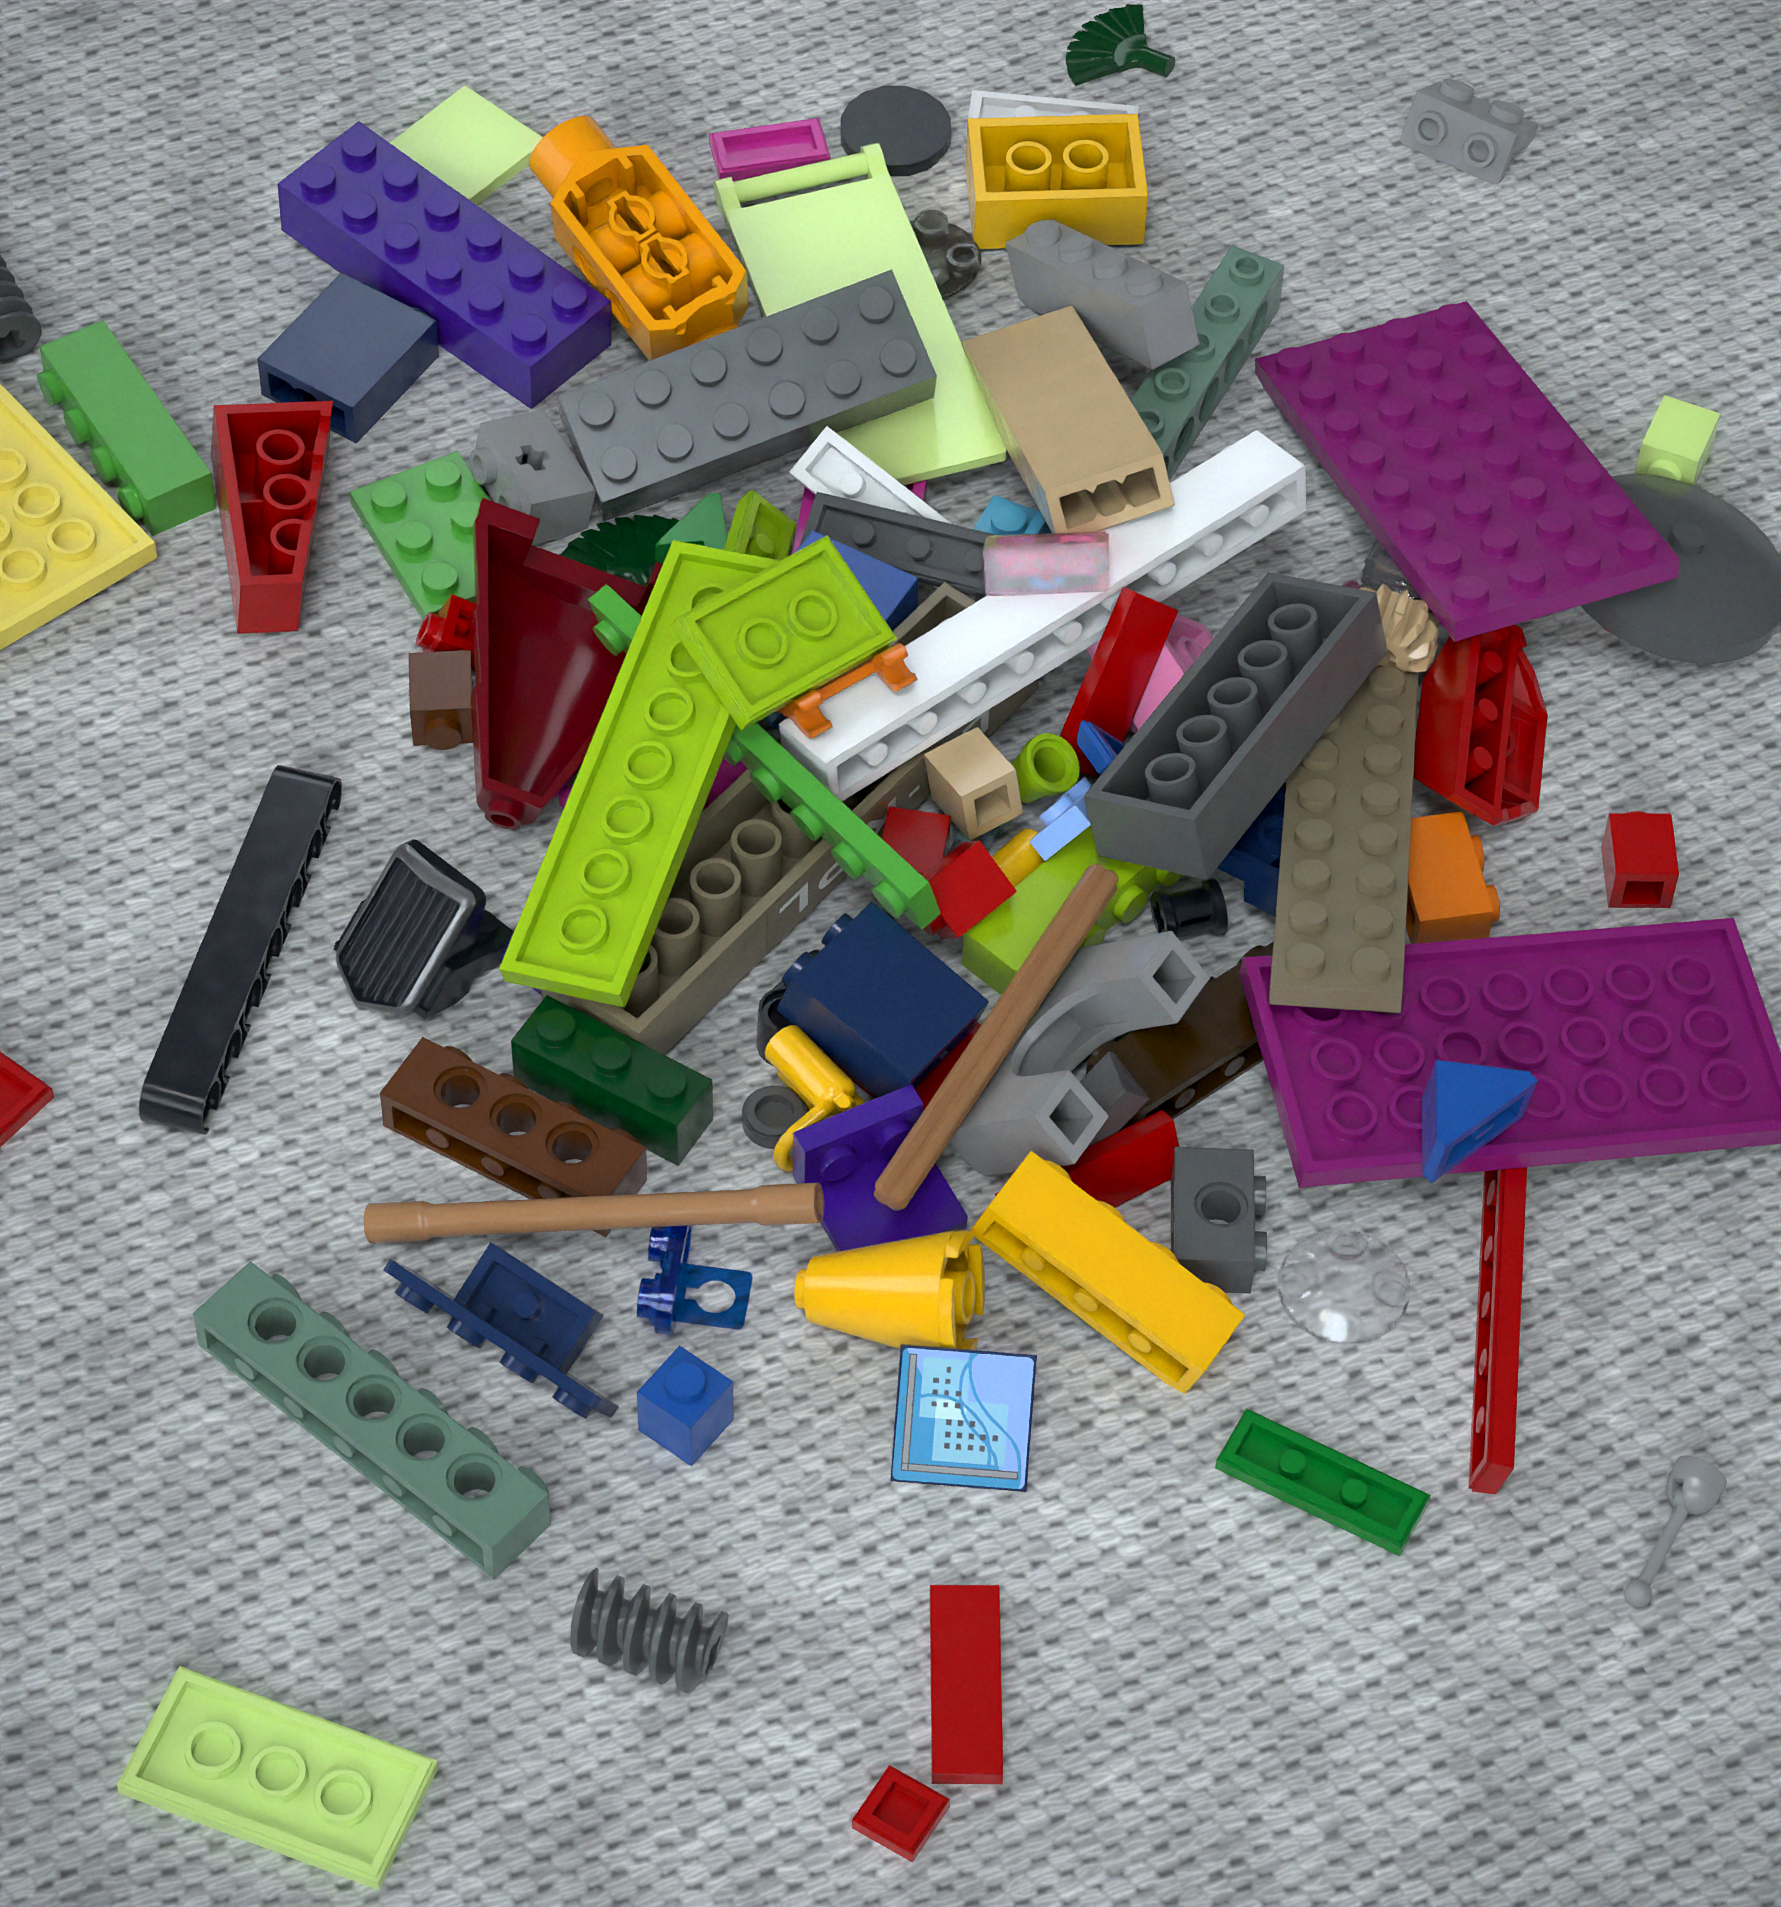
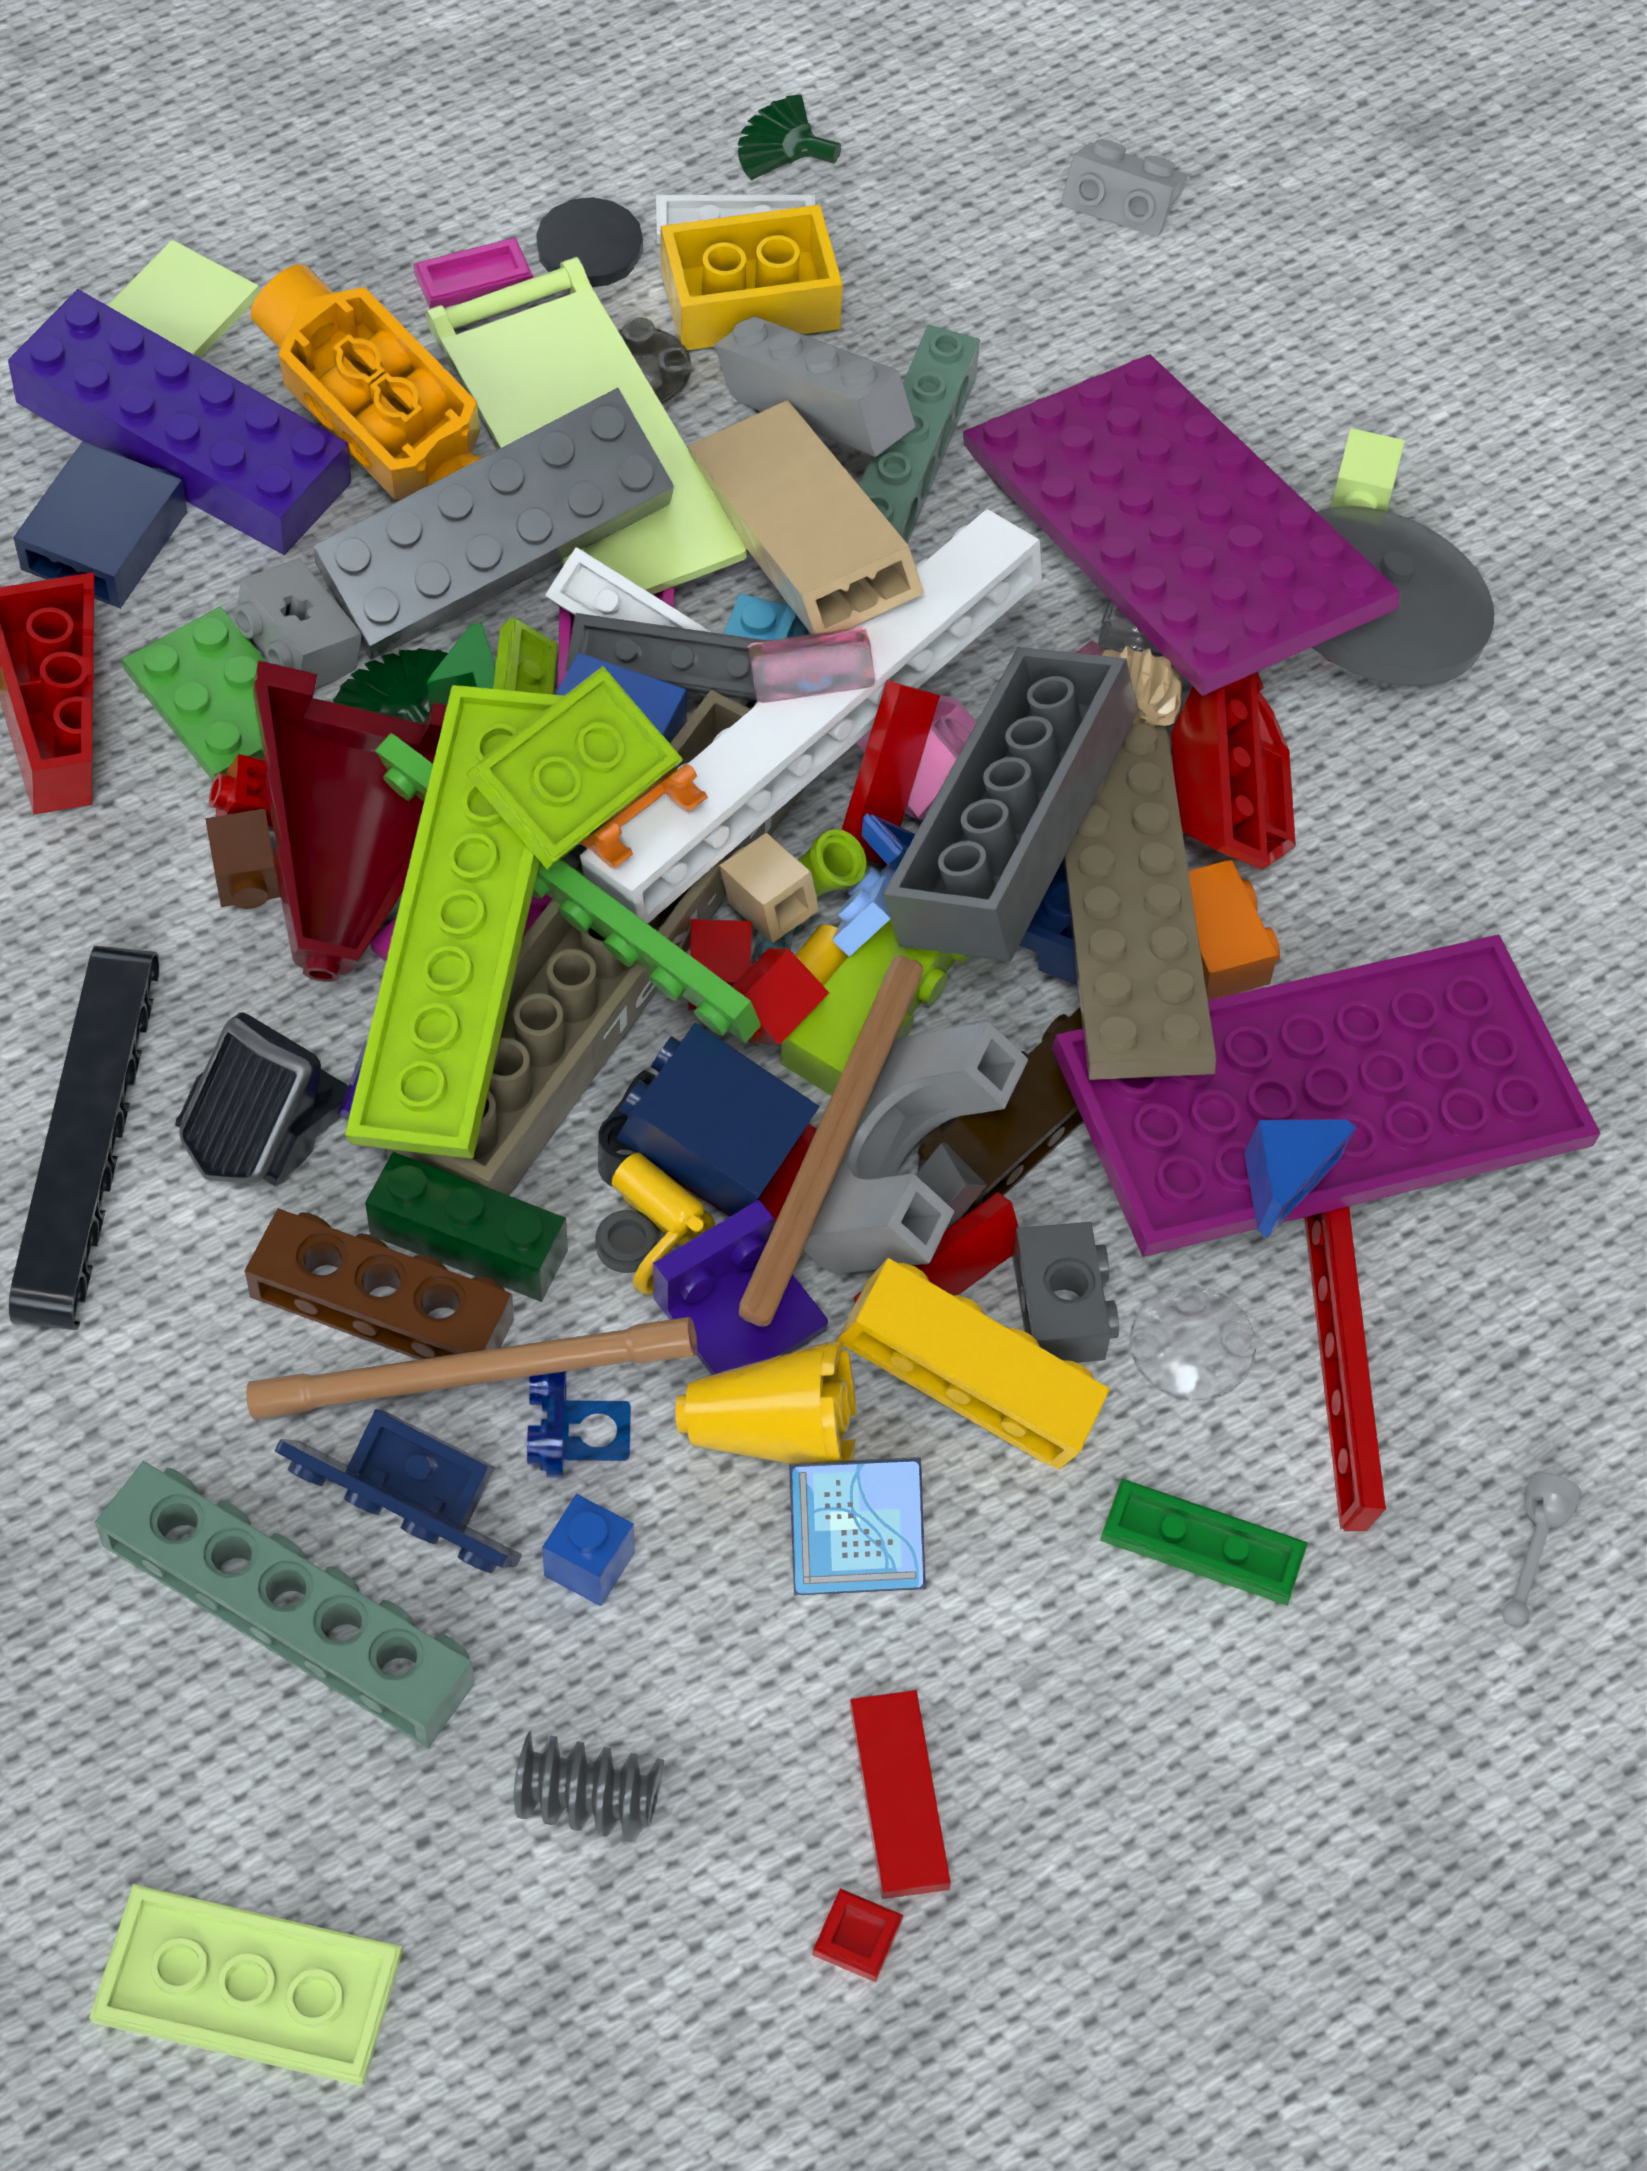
camera: 10 degrees left, 5 degrees up
(1190, 910) = (989, 988): black bush -> none
(1639, 860) = (1400, 885): red brick -> none

